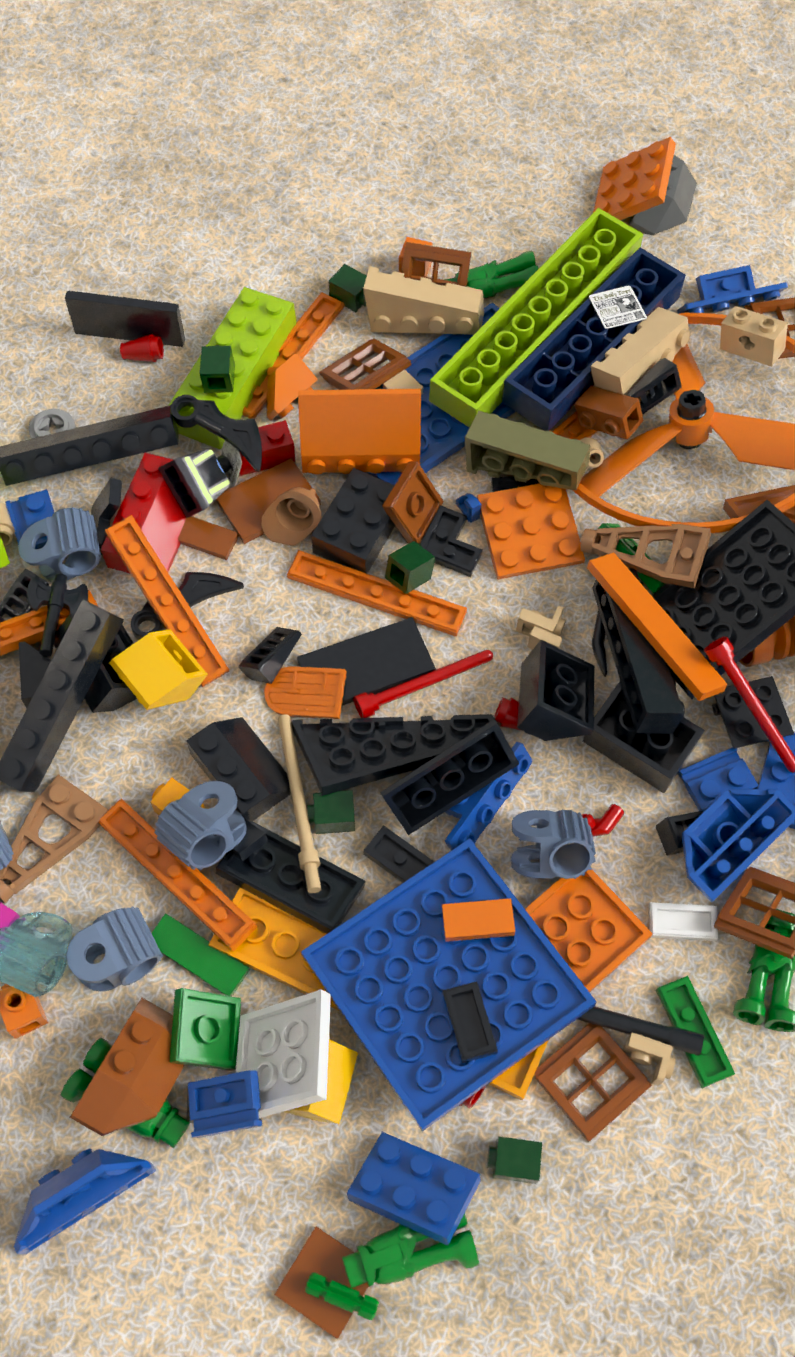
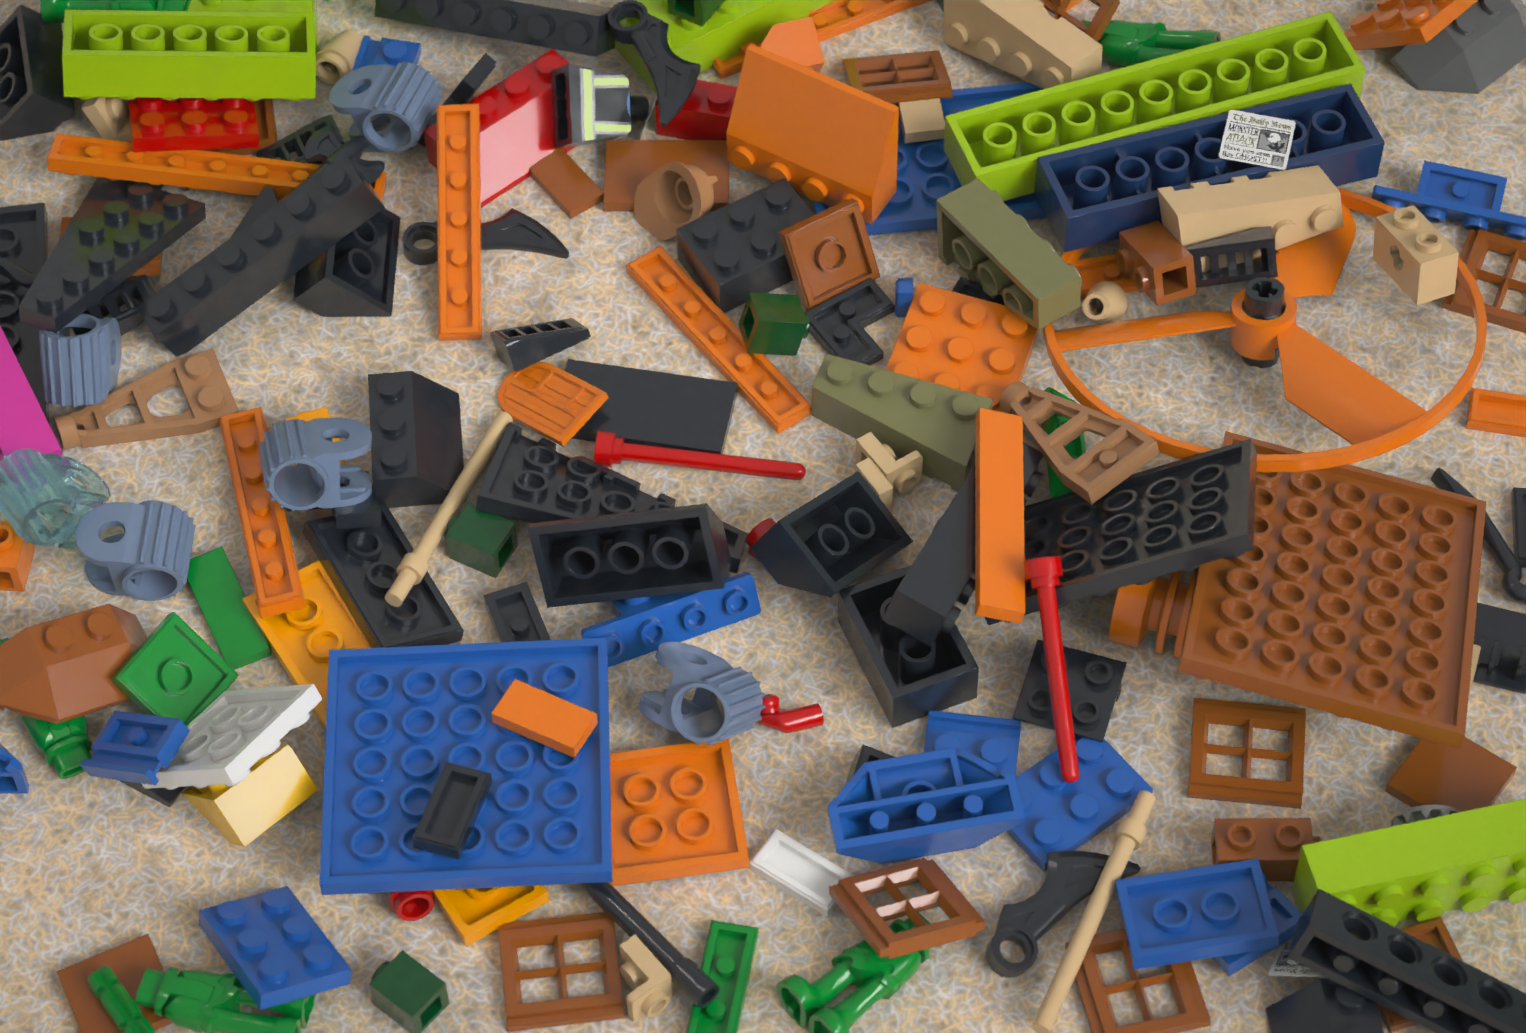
camera: 35 degrees right, 10 degrees down
(159, 670) = (395, 289): yellow slope -> none
(533, 585) = (902, 414): none -> olive wedge

